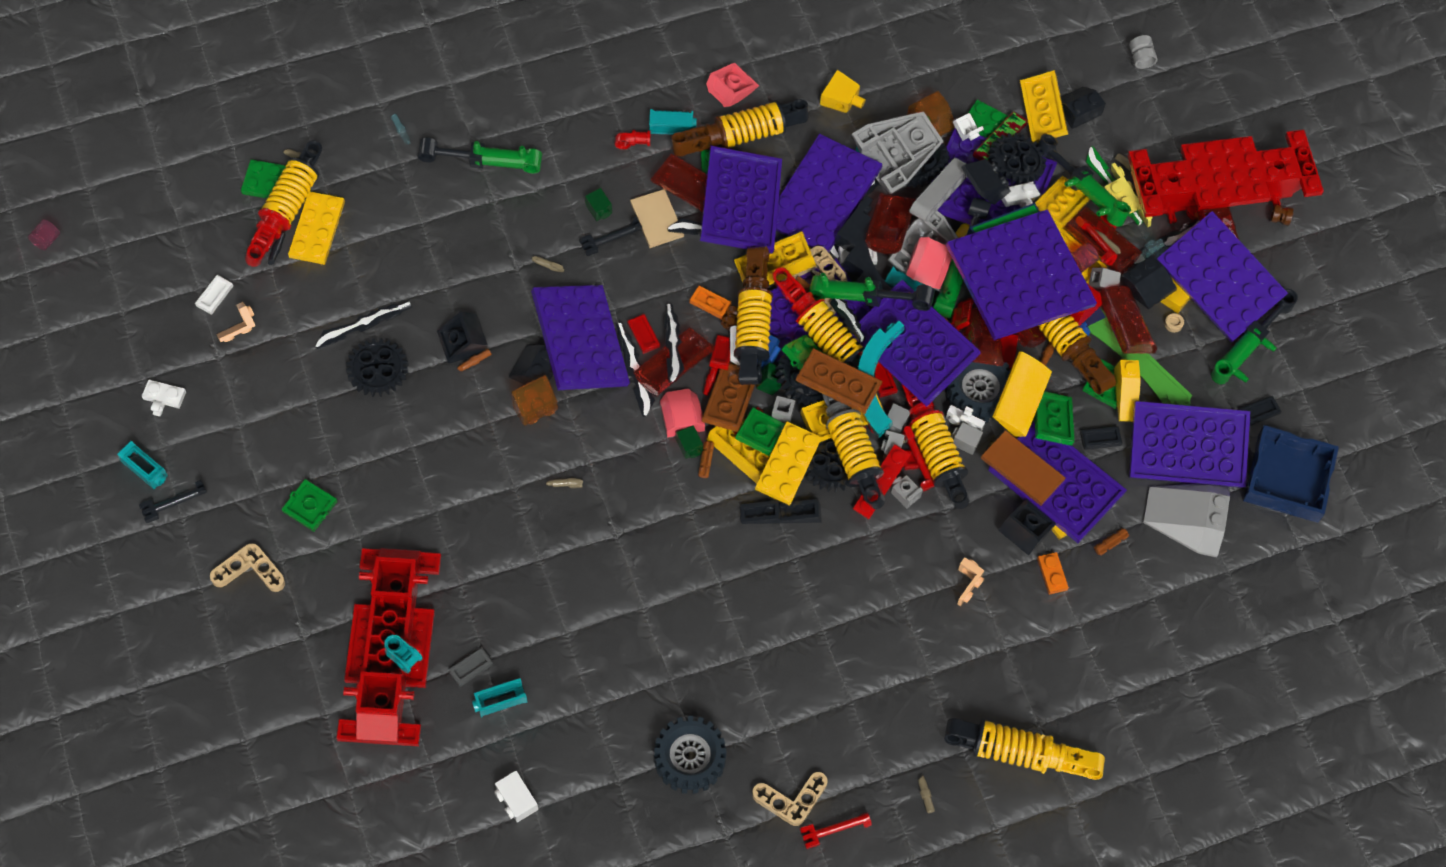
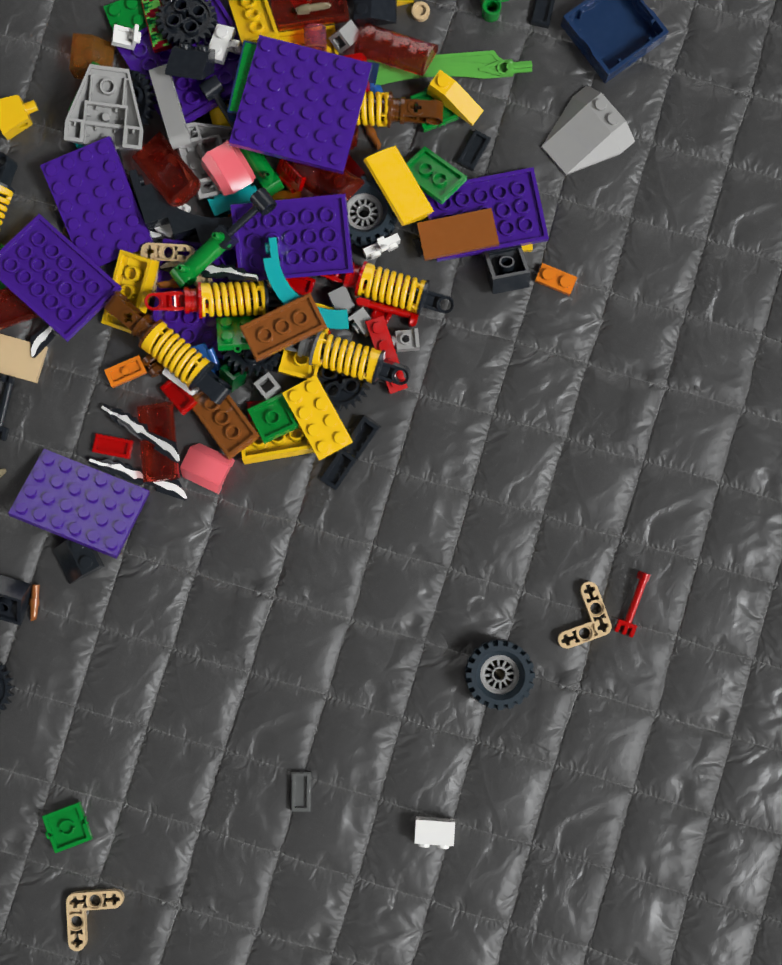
camera: 45 degrees left, 20 degrees up
(367, 662) = (237, 846): red piece -> none
(404, 656) = (261, 850): teal piece -> none
(496, 691) = (339, 807): teal window -> none
(534, 401) = (111, 582): clear orange slope -> none
(570, 482) = (201, 601): dark tan piece -> none
(689, 442) = (238, 481): dark green brick -> none
(706, 459) = (262, 478): dark orange axle -> none
(710, 380) = (195, 423): red piece -> none
(926, 794) = (656, 515): dark tan piece -> none
(967, 438) = (397, 257): light grey brick -> none
(973, 571) = (508, 340): light nougat bracket -> none
(1023, 746) = (679, 416): piece -> none
(1109, 256) = (288, 11): red hinge -> none
(1111, 541) = (564, 213): dark orange axle -> none
(1189, 444) = (534, 87): dark purple plate -> none

